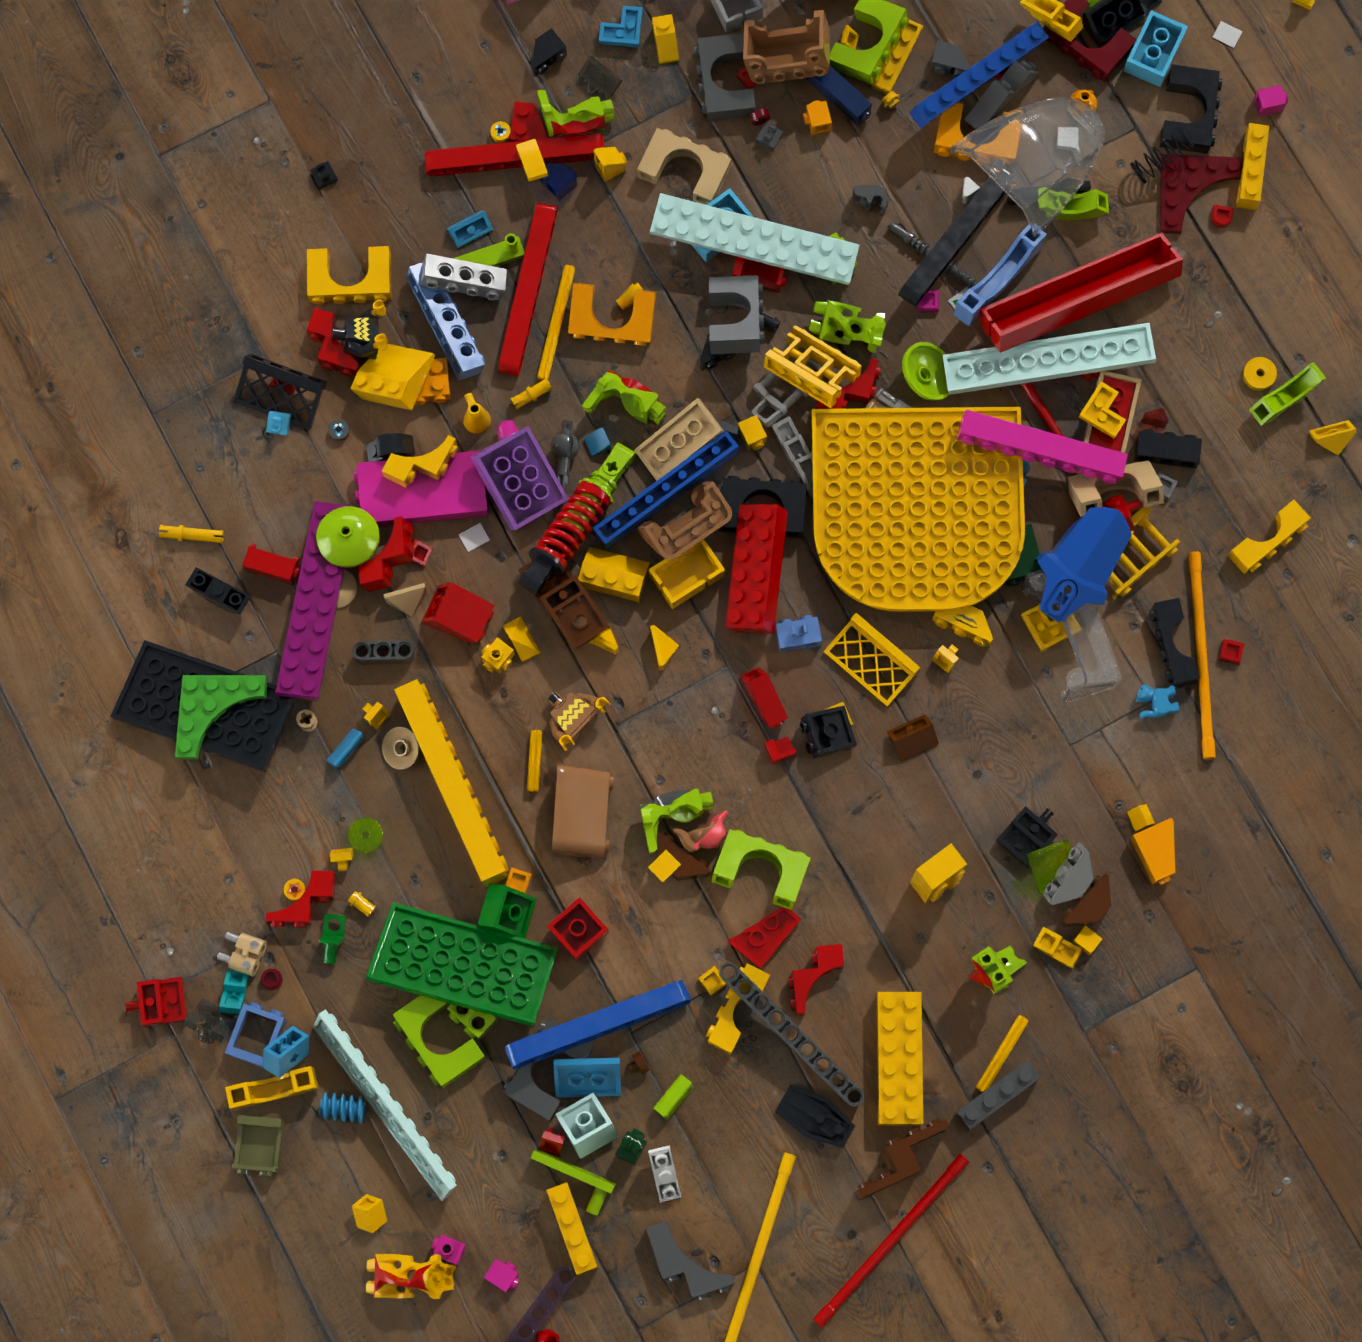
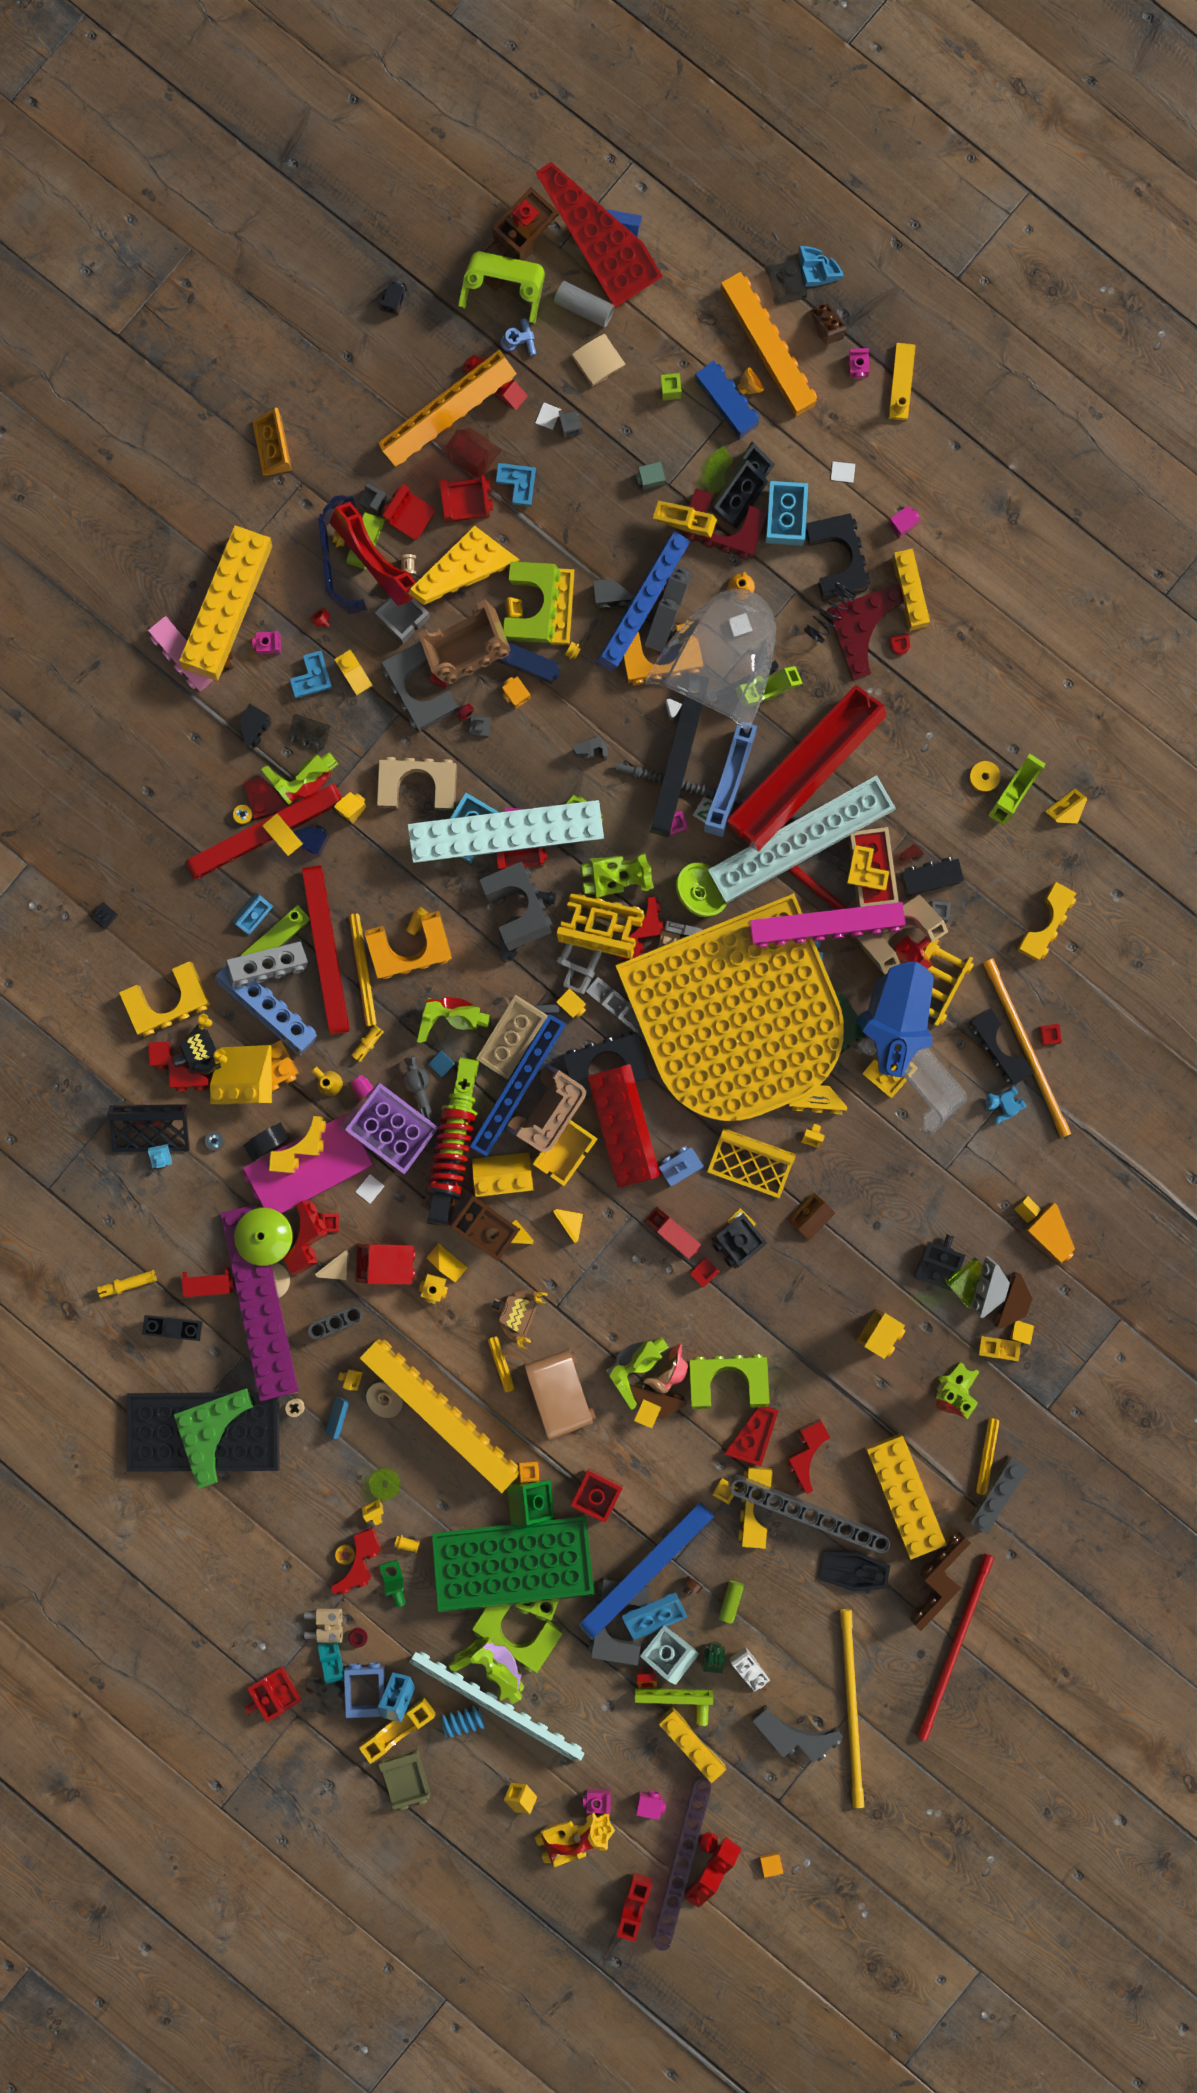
camera: 20 degrees left, 10 degrees up
(405, 1061) = (499, 1665): none -> lime hips

